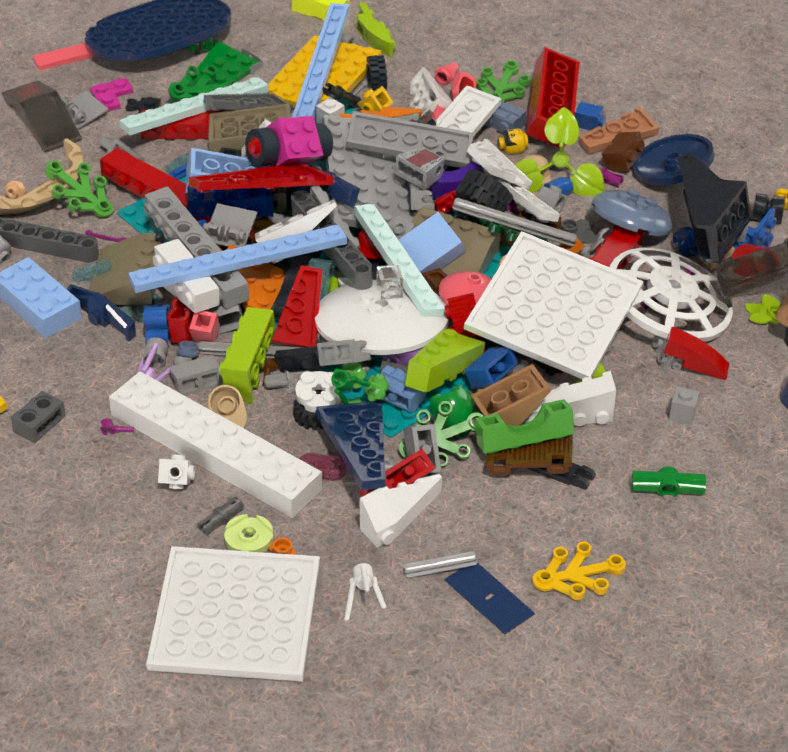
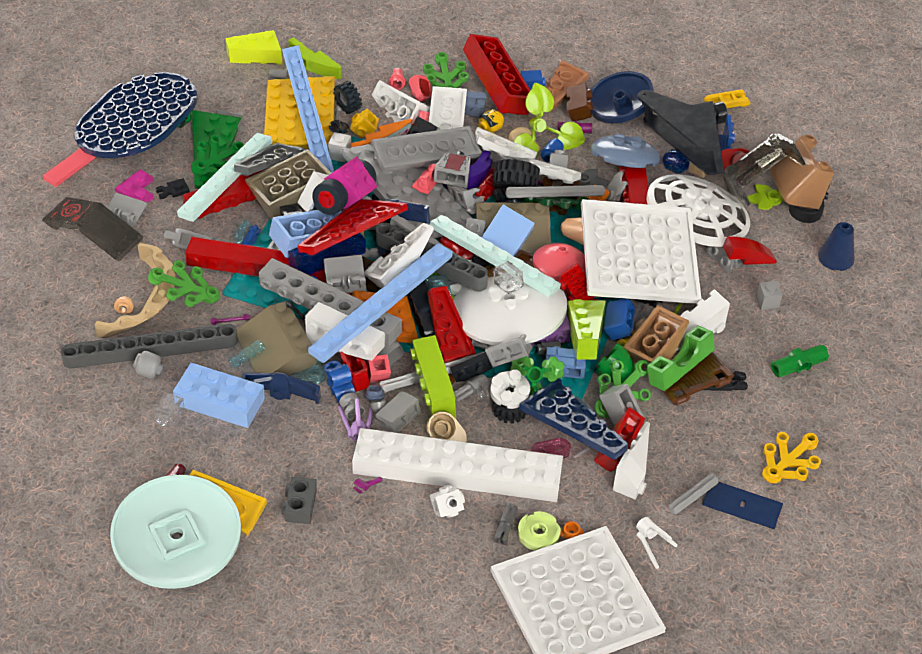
camera: 30 degrees left, 5 degrees up
(383, 170) = (425, 182): none -> coral hinge

